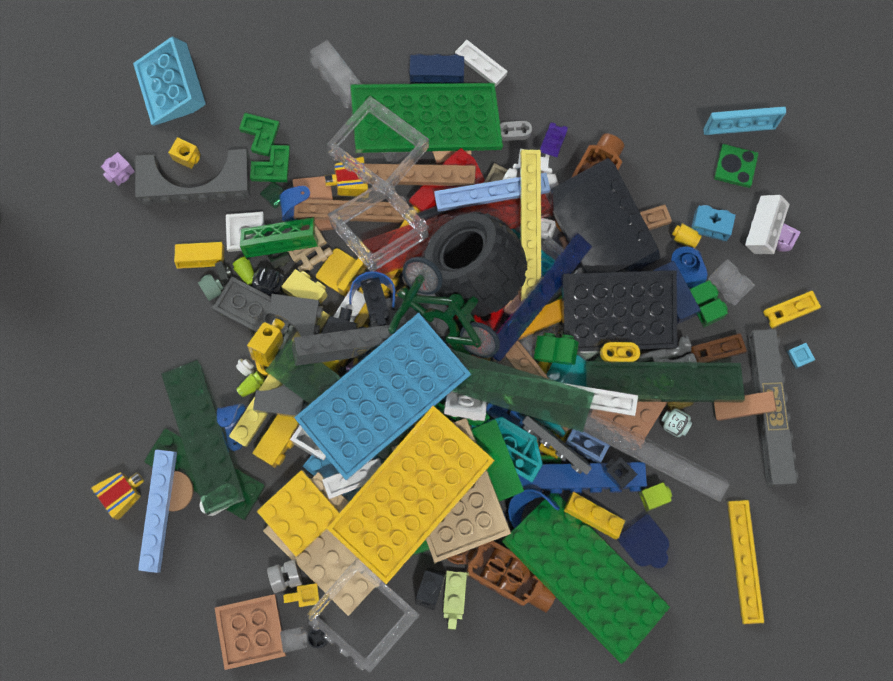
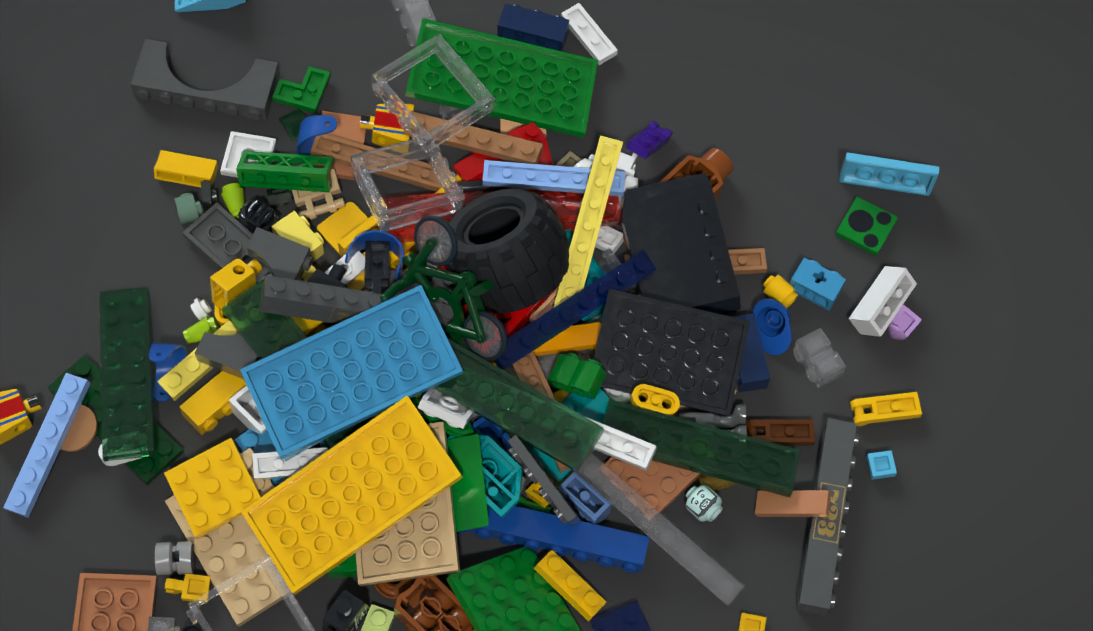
camera: 10 degrees right, 10 degrees down
(117, 169) = (119, 49): lavender brick -> none
(181, 147) = (202, 42): yellow brick -> none
(263, 129) = (305, 49): green plate -> none
(514, 130) = (607, 120): light grey beam -> none
(520, 501) = (487, 543): blue piece -> none
(627, 476) = (613, 528): black brick -> none
(655, 496) = (652, 583): lime brick -> none
(710, 312) = (784, 378): green piece -> none

